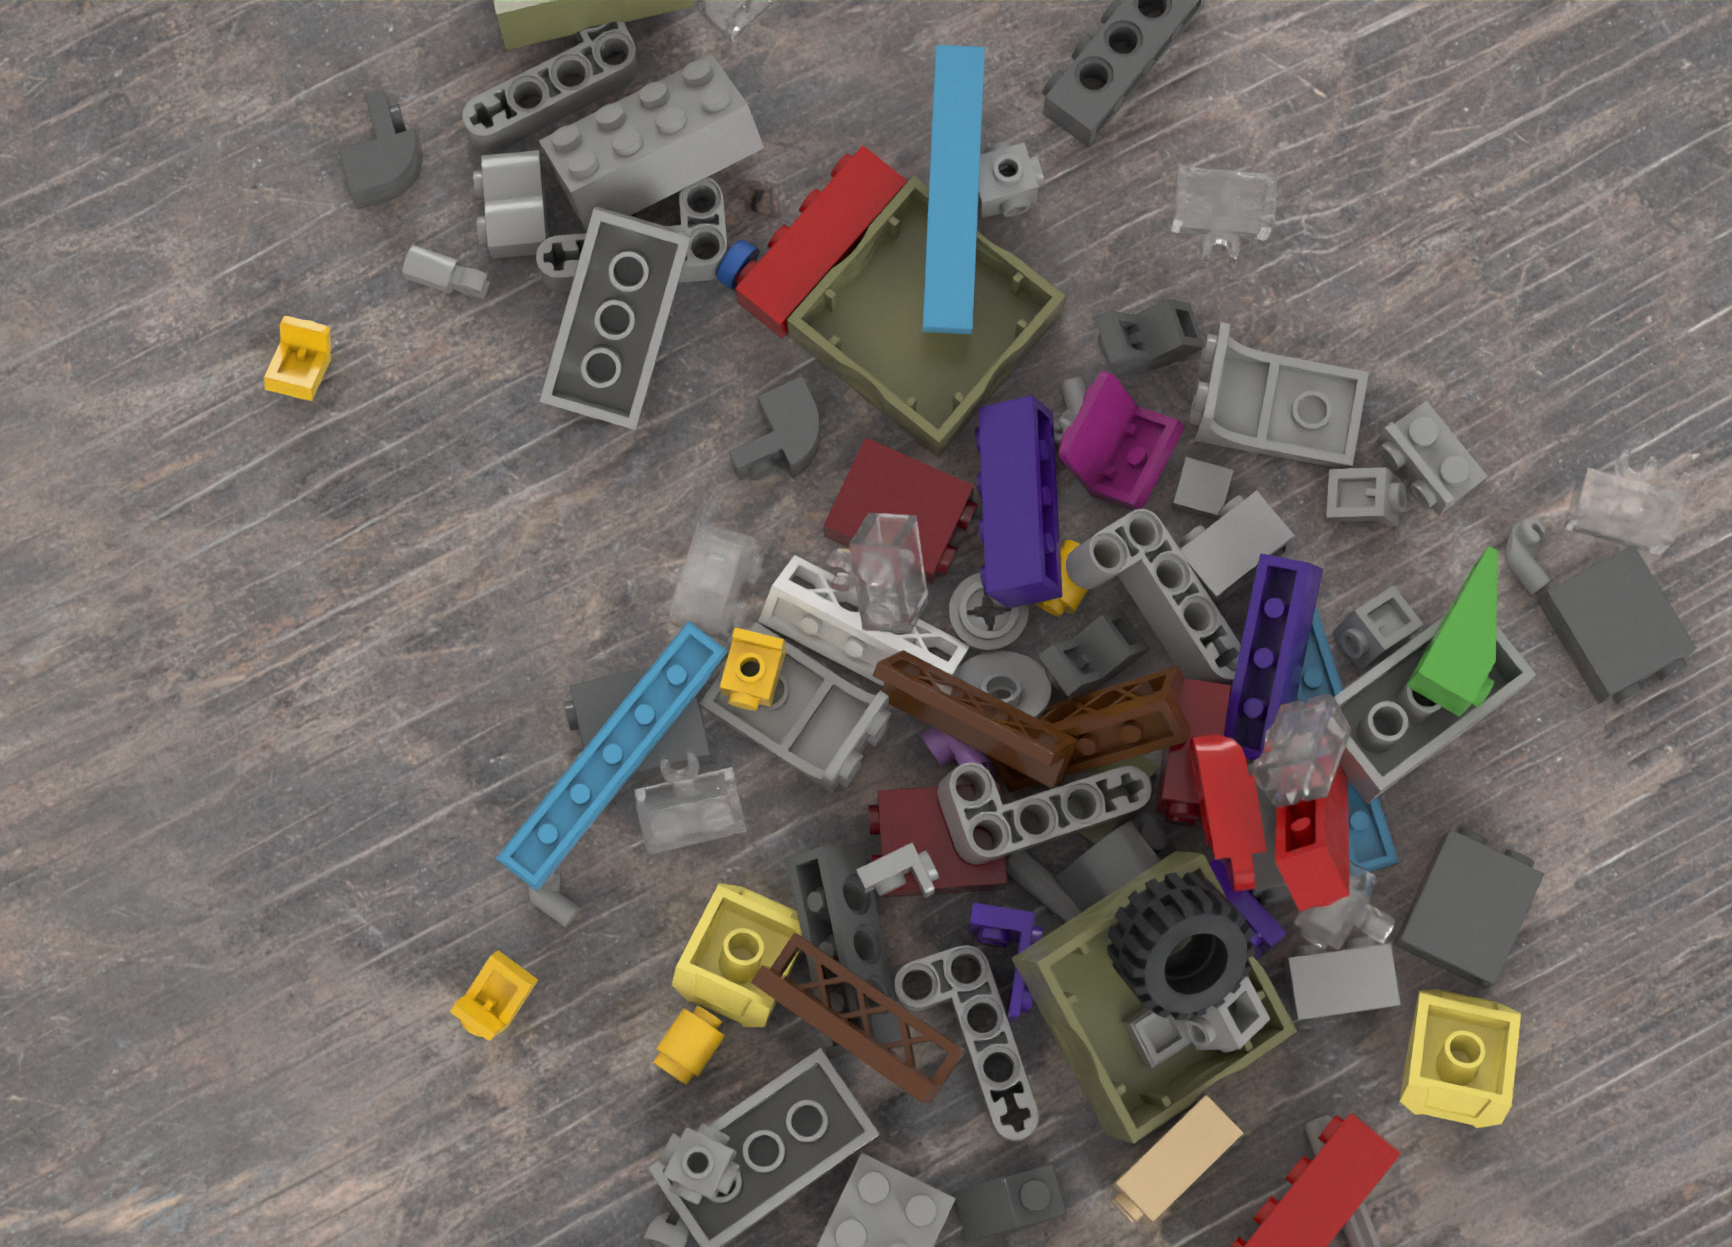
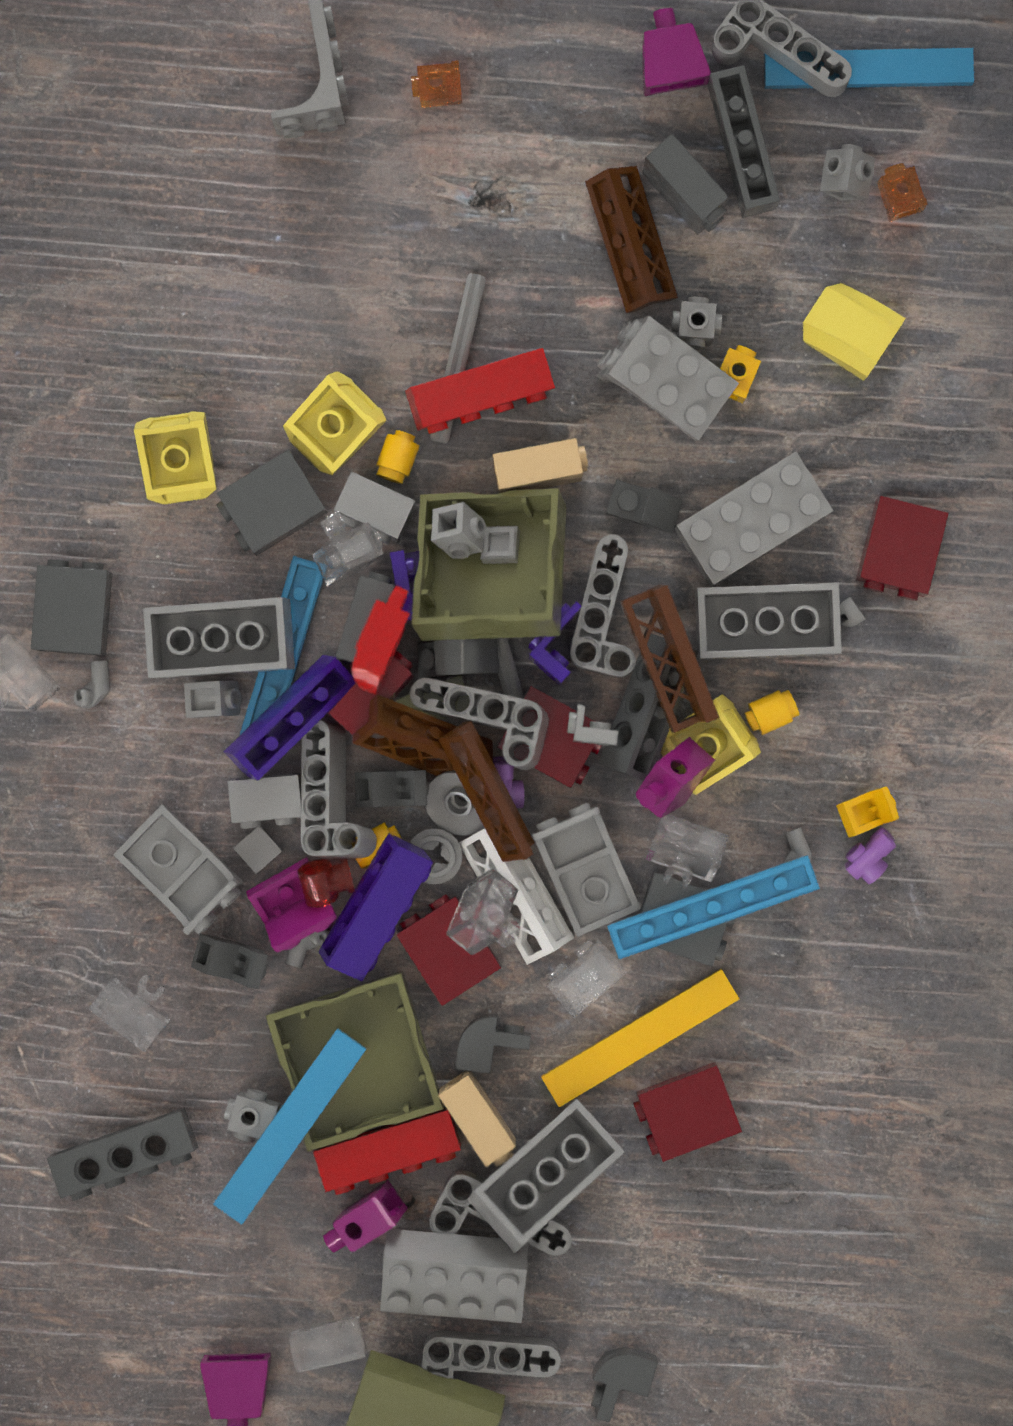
camera: 145 degrees left, 10 degrees up
(299, 359) = (750, 1277): yellow bracket -> none
(444, 273) = (629, 1277): light grey bar -> none
(456, 939) = (867, 860): none -> medium lavender plate
(493, 501) = (687, 1112): none -> dark red brick
(513, 203) = (559, 1294): light grey brick -> none
(603, 555) = (640, 1037): none -> yellow tile
(720, 1170) = (801, 641): light grey brick -> none
(734, 261) = (448, 1169): blue tile -> none
(737, 335) = (478, 1118): none -> tan brick
(760, 689) = (585, 909): yellow brick -> none
(760, 853) = (665, 788): none -> magenta torso
(794, 148) = (366, 1219): none -> magenta torso
(1099, 491) = (323, 881): none -> clear red piece
(1200, 971) = (461, 578): black tyre -> none
(1302, 750) = (314, 646): clear brick -> none
(1315, 846) = (335, 602): red brick -> none
(1355, 1065) = (397, 456): none -> yellow brick
(1365, 495) = (165, 781): light grey bracket -> none
(1430, 458) = (110, 780): light grey bracket -> none
(1464, 646) = (176, 649): bright green slope -> none
(1624, 889) = (175, 457): none -> light yellow slope

